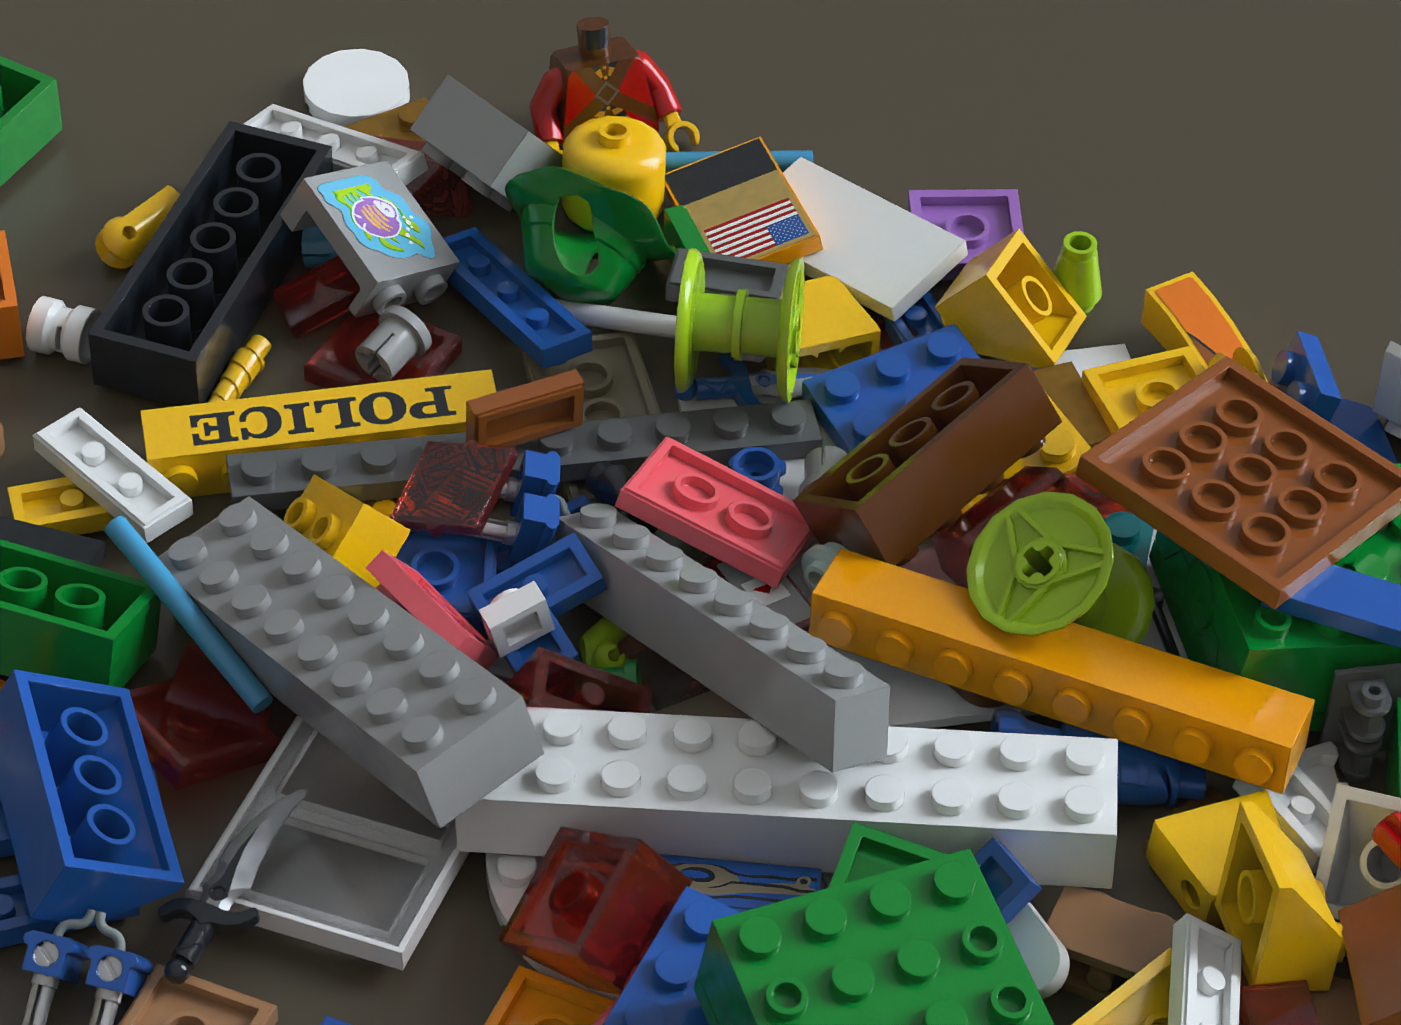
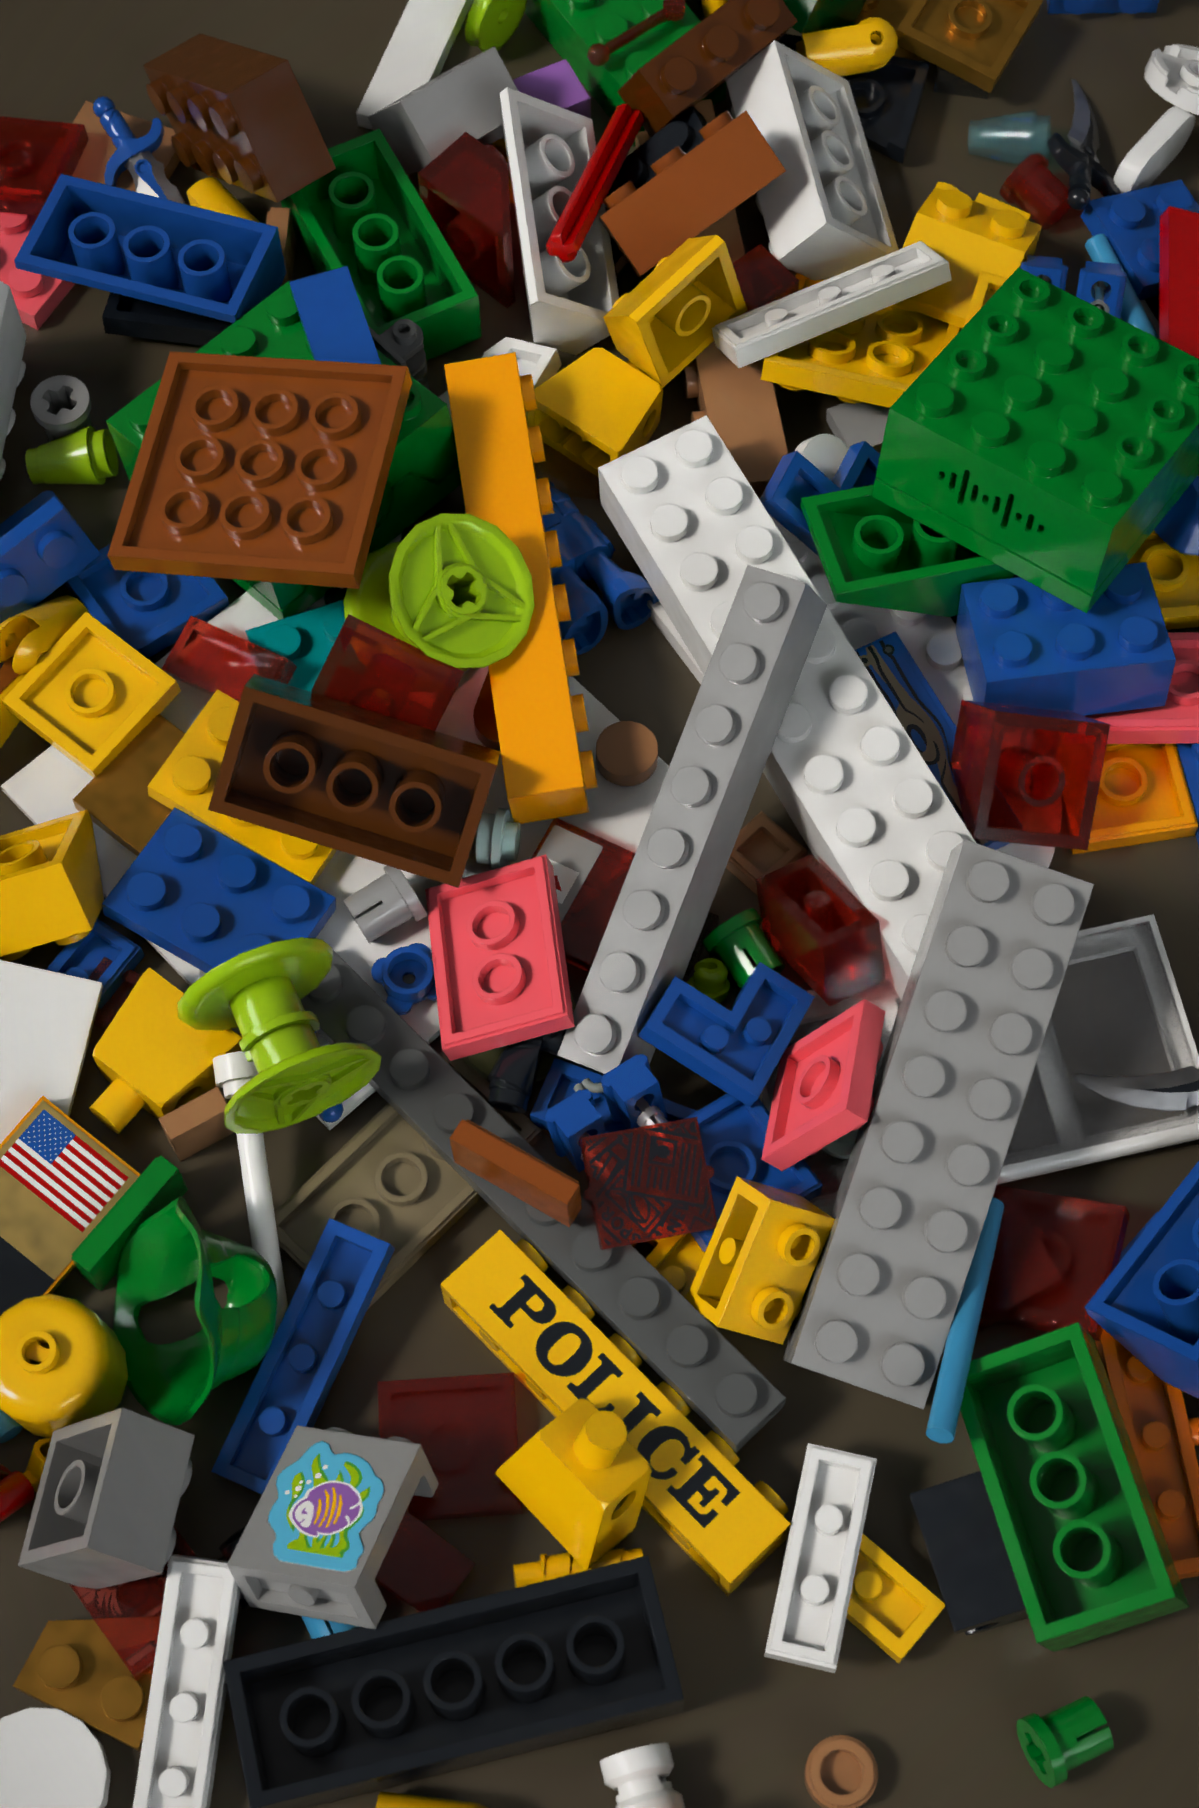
camera: 120 degrees left, 20 degrees up
(283, 359) = (581, 1480): none -> yellow torso
(393, 343) = (461, 1411): light grey bush -> none
(516, 618) = (780, 1011): white plate -> none
(728, 273) = (177, 1132): dark grey tile -> none

